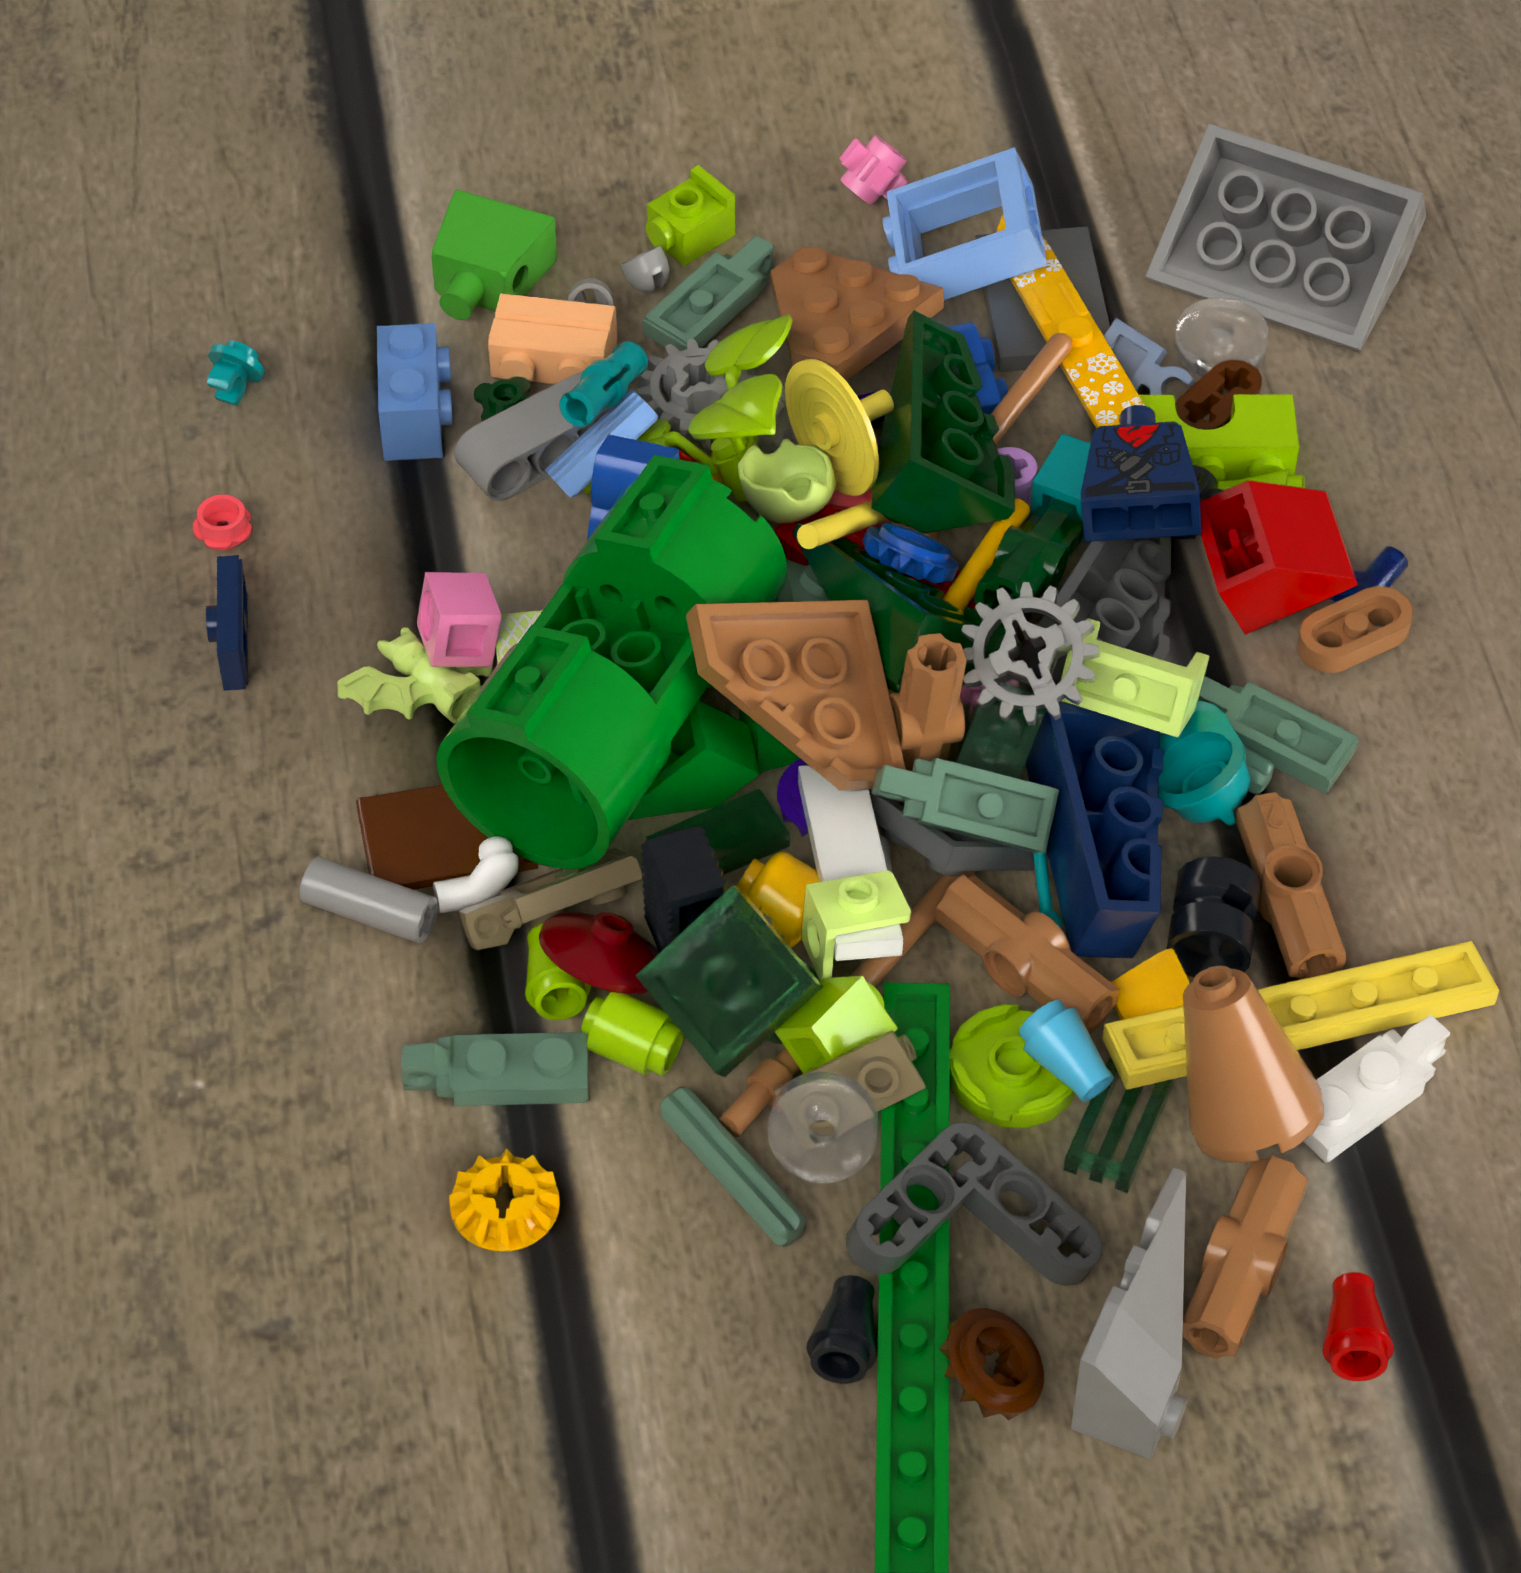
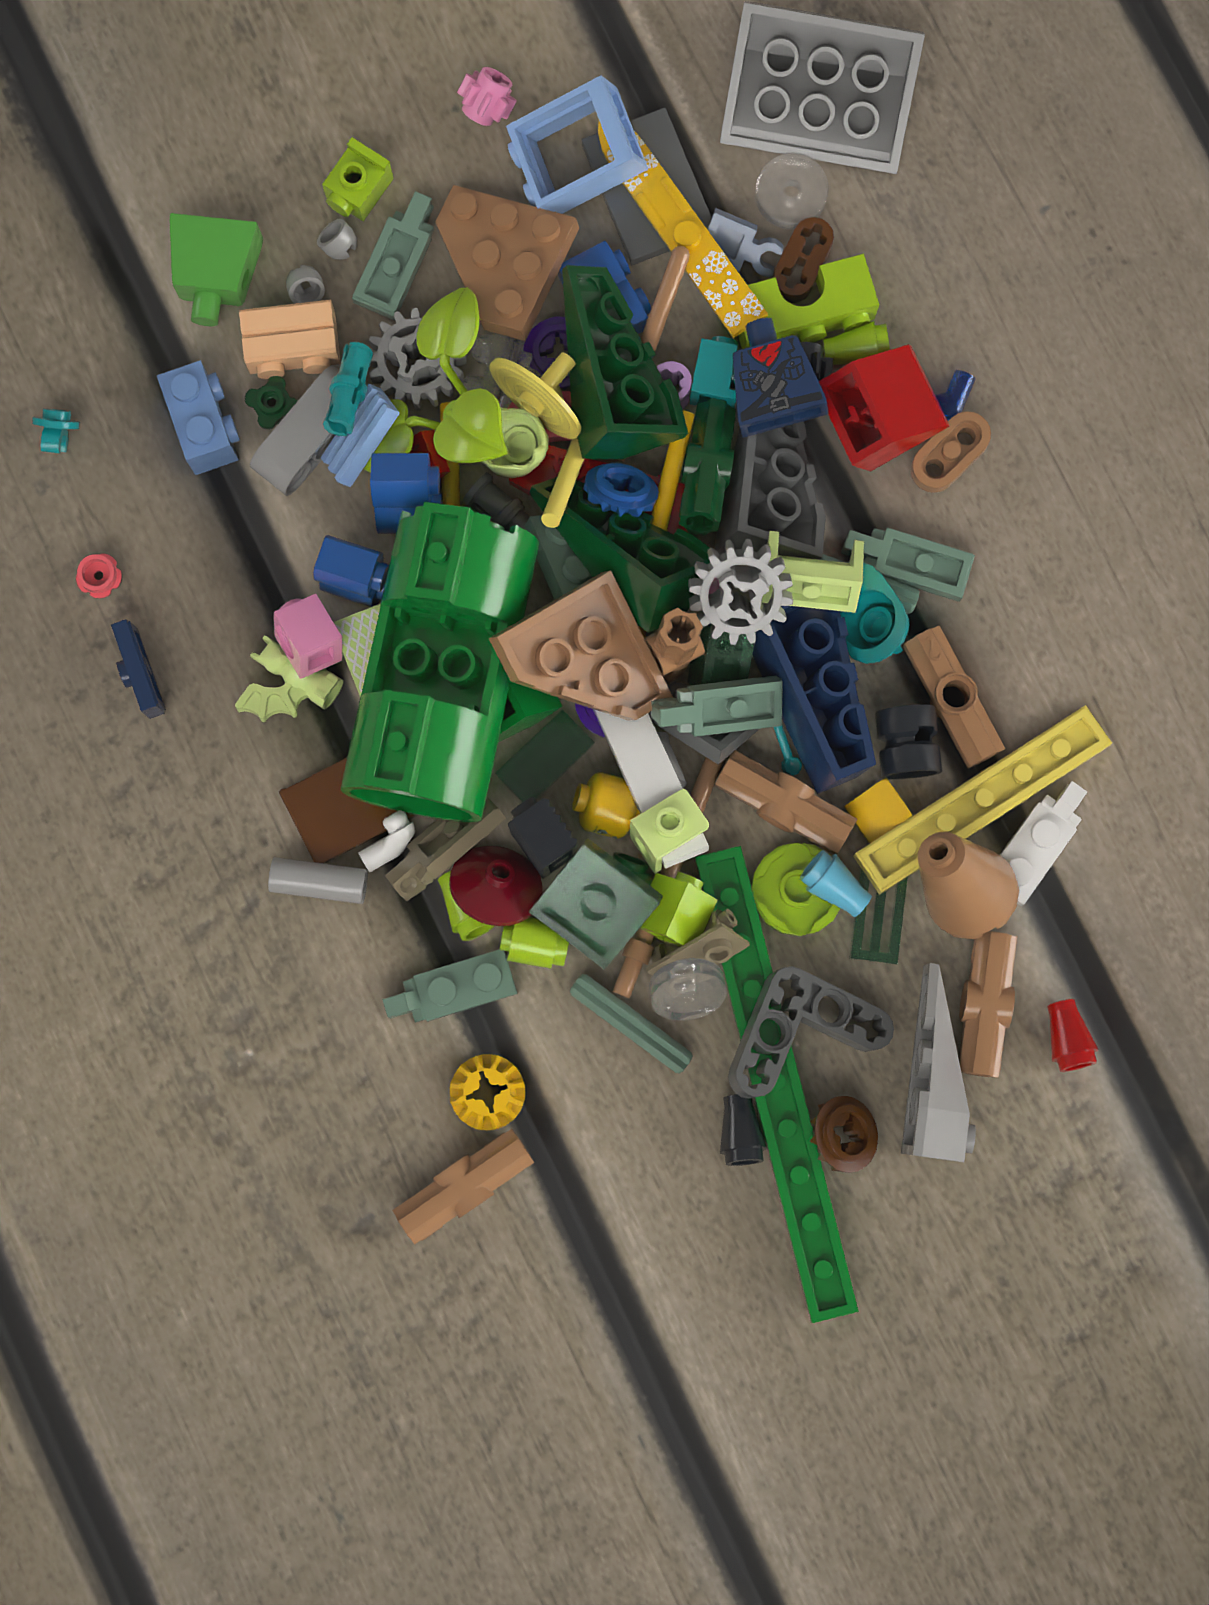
camera: 15 degrees left, 30 degrees up
(429, 1299) = (463, 1186): none -> medium nougat piece
(530, 557) = (351, 571): none -> blue brick

